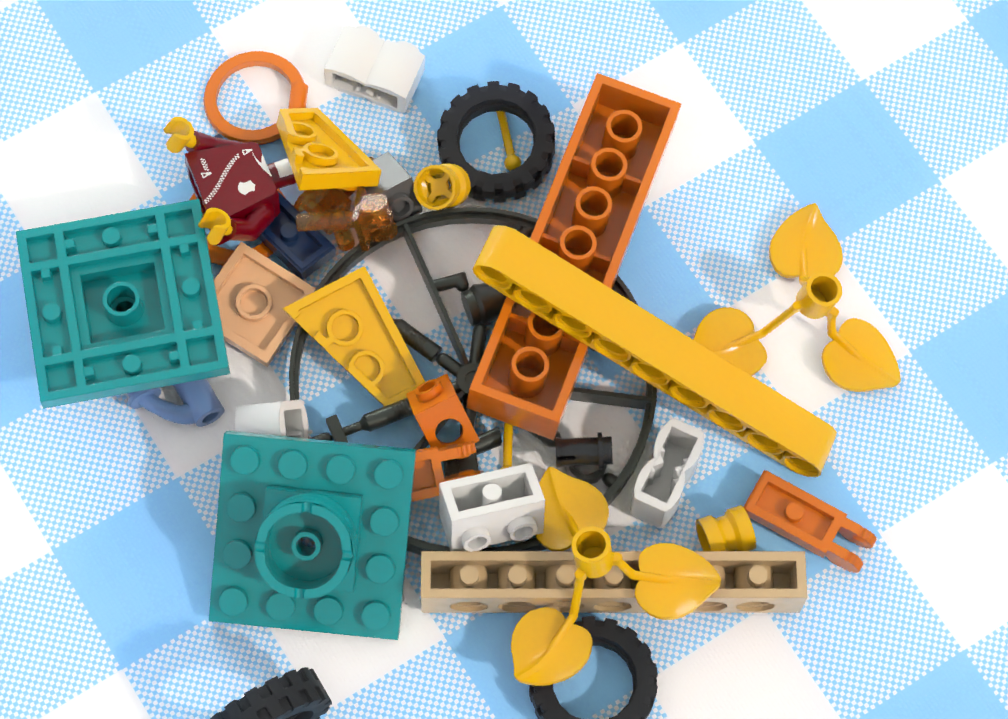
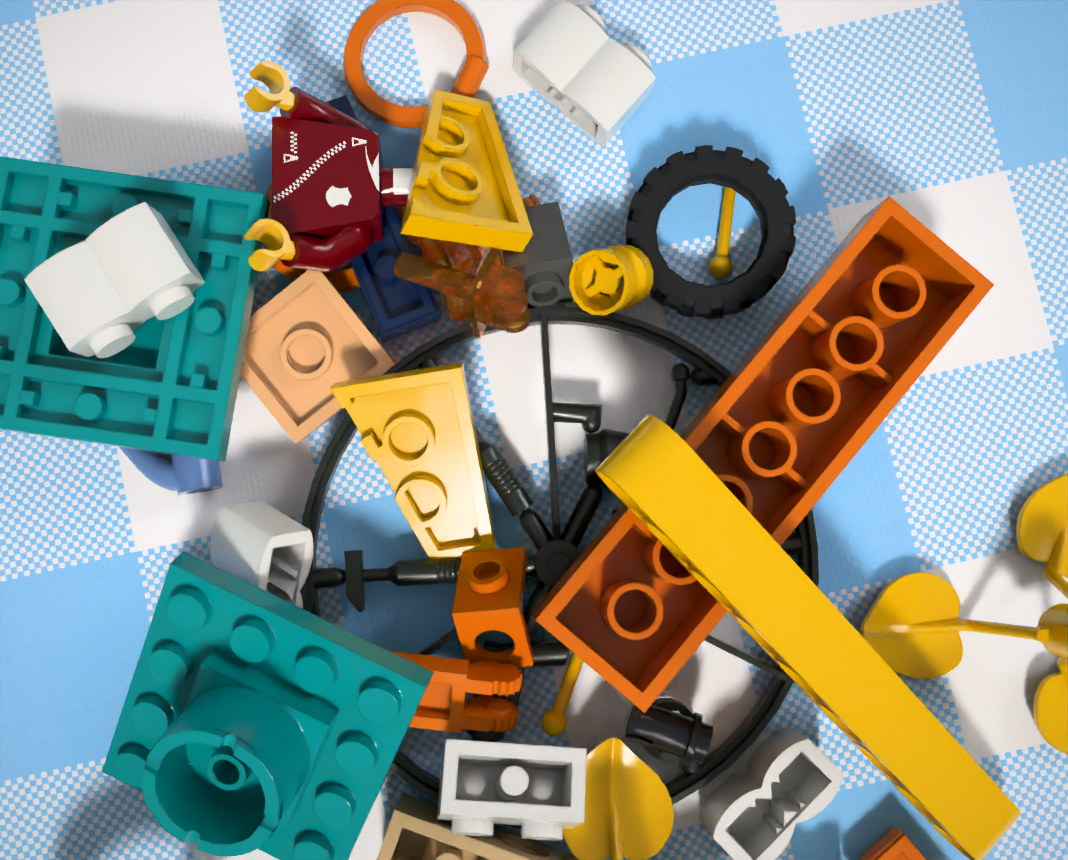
camera: 20 degrees right, 15 degrees up
(129, 275) = (115, 282): none -> white brick

